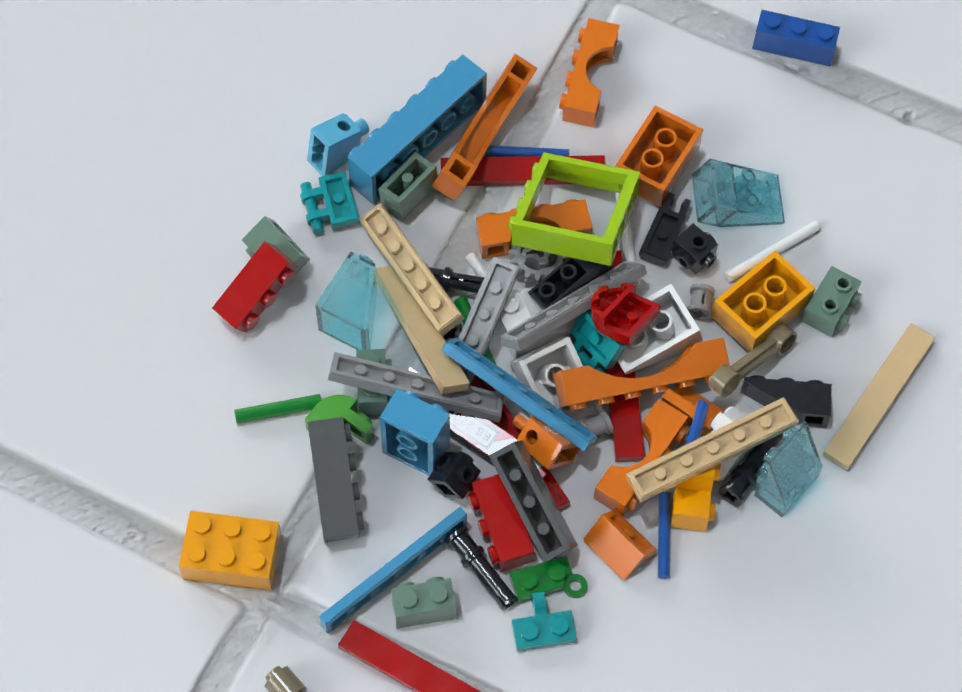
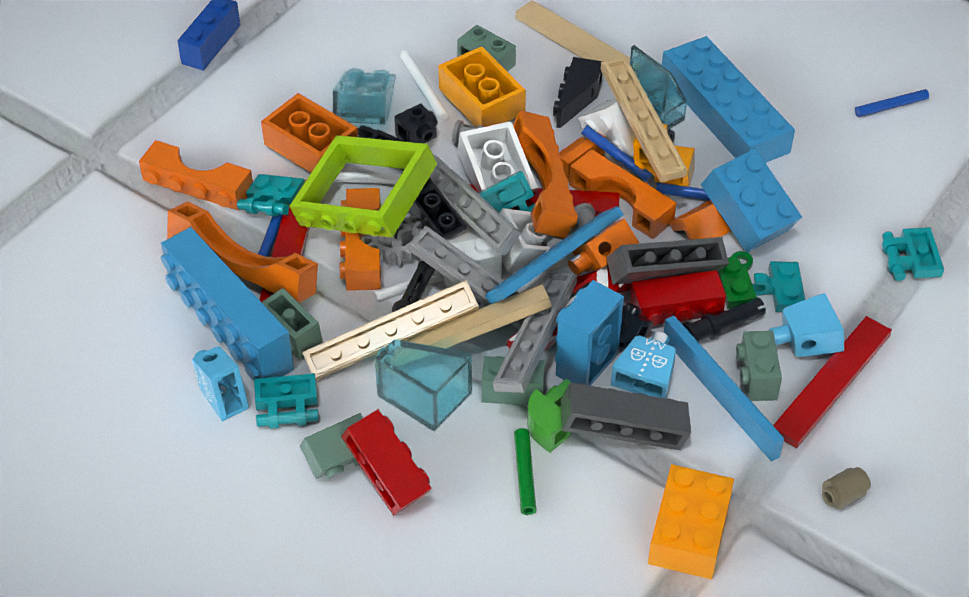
camera: 80 degrees left, 15 degrees down
(410, 500) = (645, 366): none -> medium azure torso
(479, 649) = (811, 328): none -> medium azure torso
(584, 139) = (271, 194): none -> teal plate
(622, 313) = (489, 164): red slope -> none
(636, 578) = (751, 200): none -> dark azure brick
(727, 377) = (560, 114): dark tan piece -> none
(804, 552) = (728, 101): none -> dark azure brick

